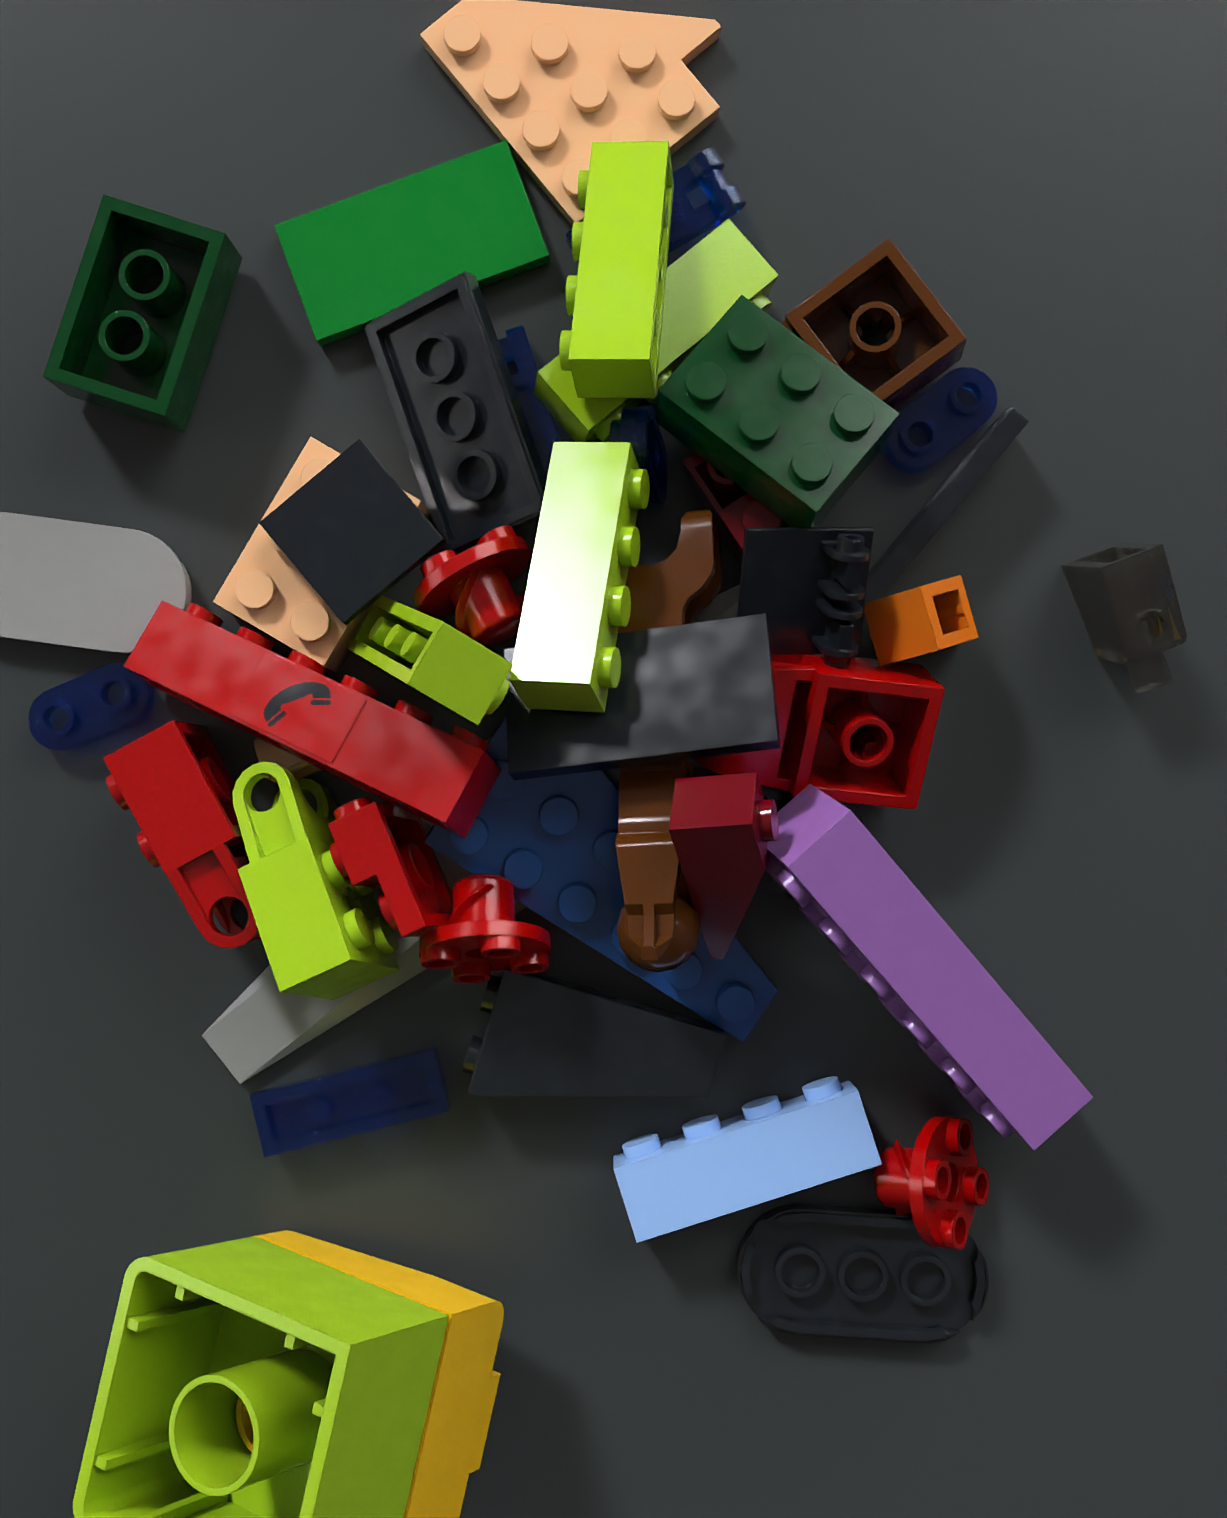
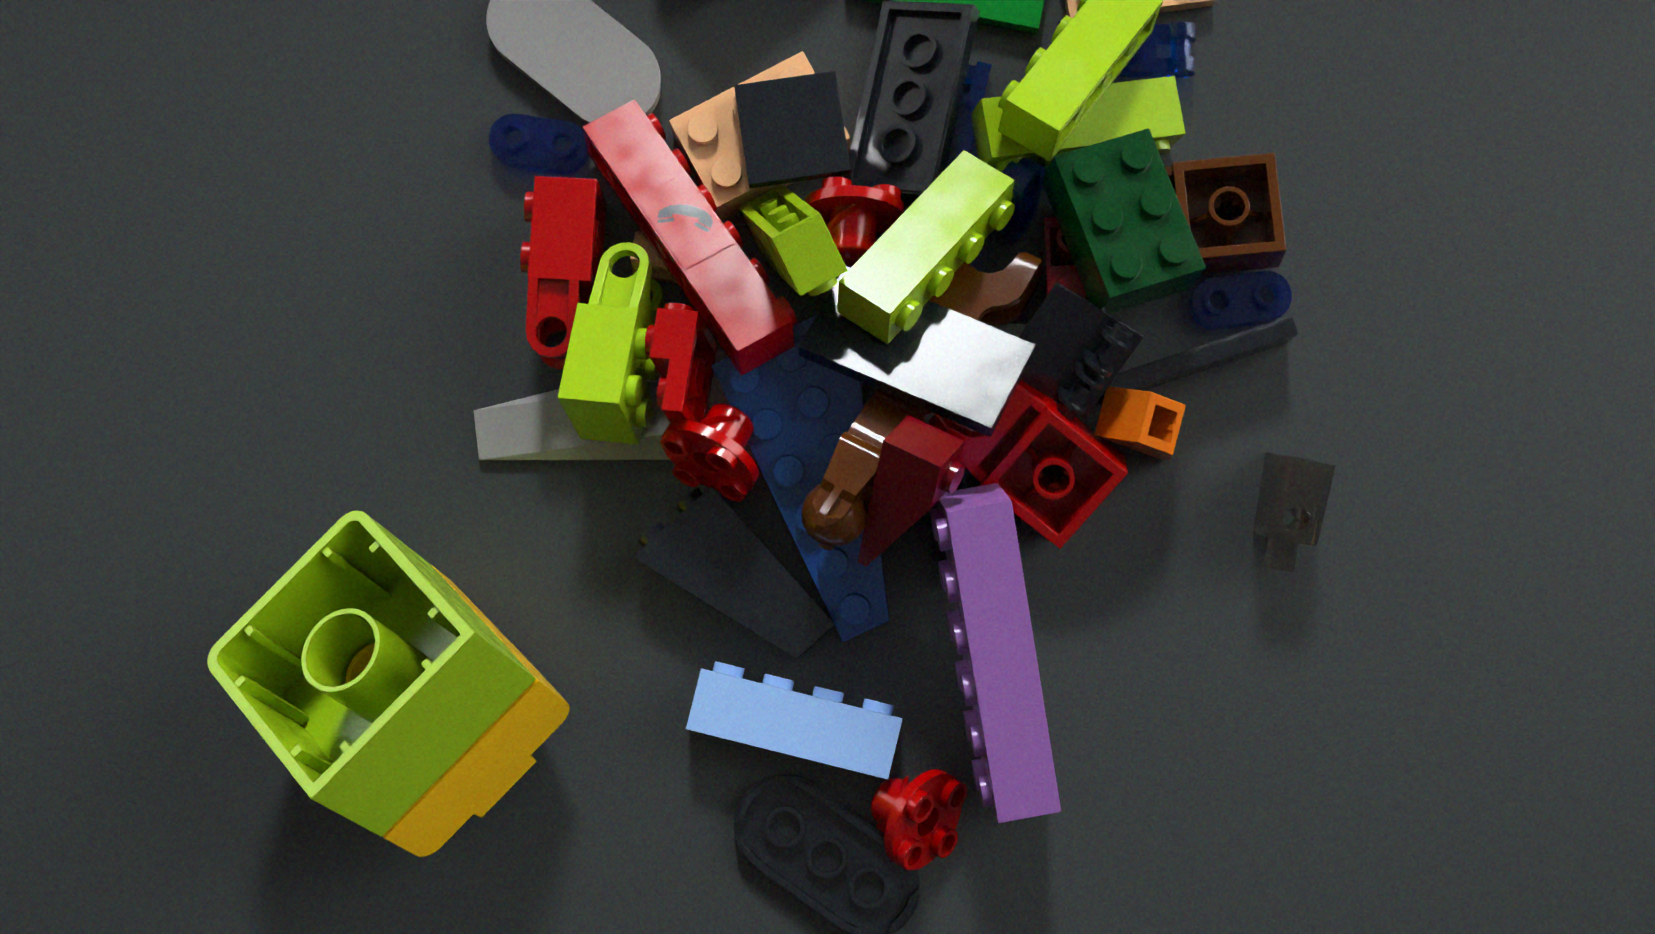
camera: 25 degrees right, 5 degrees down
(350, 1101) = (548, 516): clear blue plate -> none

